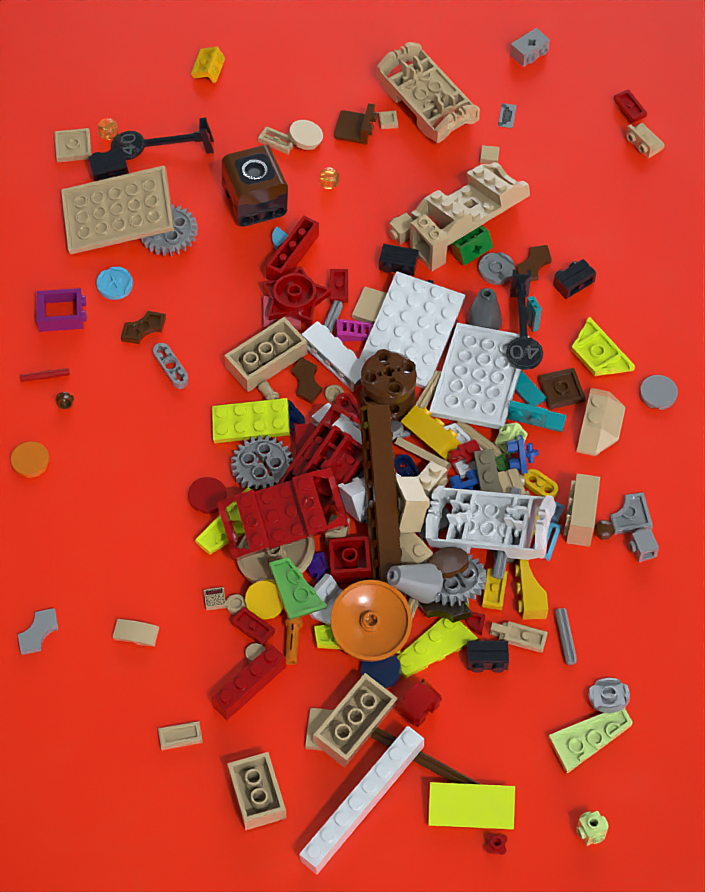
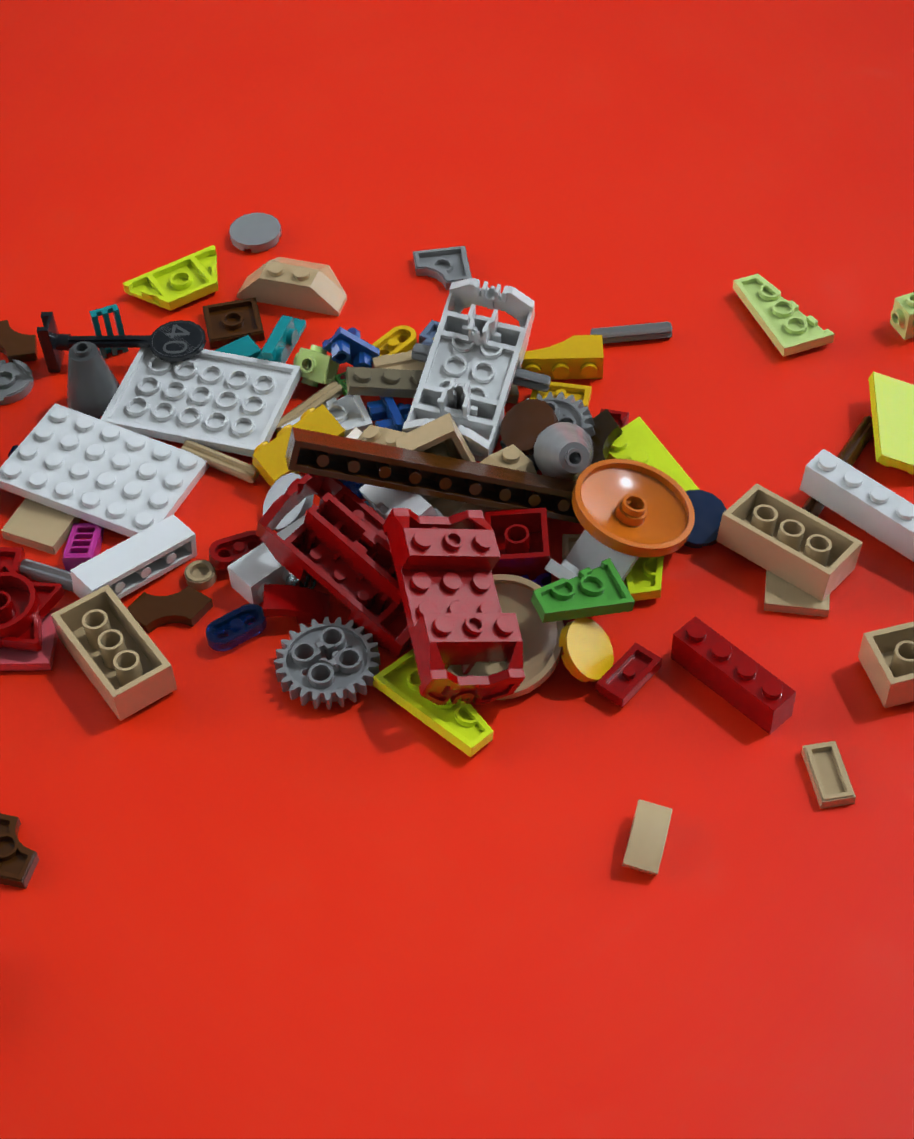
camera: 85 degrees left, 10 degrees down
(30, 459) = (273, 1032): orange tile -> none
(43, 624) = (661, 1007): light grey tile -> none
(44, 374) = (80, 1016): red piece -> none
(64, 400) = (149, 972): reddish brown plate -> none
(170, 358) = (95, 815): light grey beam -> none
(205, 493) = (377, 743): red tile -> none
(215, 598) = (576, 729): tile -> none
(235, 603) = (586, 702): tan tile -> none
(250, 420) = (240, 678): neon yellow plate -> none
(253, 651) = (675, 674): tan tile -> none
(267, 391) = (187, 655): tan pin -> none
(292, 640) = (642, 624): orange pin -> none
(389, 383) = (216, 480): reddish brown piece -> none
(418, 702) = (753, 462): red brick -> none
(464, 452) = (341, 408): red plate -> none
(487, 656) = (668, 405): black brick -> none
(520, 635) = (634, 374): tan hinge -> none
(574, 278) = (50, 295): black brick -> none
(581, 509) = (427, 287): tan brick -> none
(609, 695) = (719, 293): light grey tile -> none
(643, 545) = (495, 252): light grey brick -> none

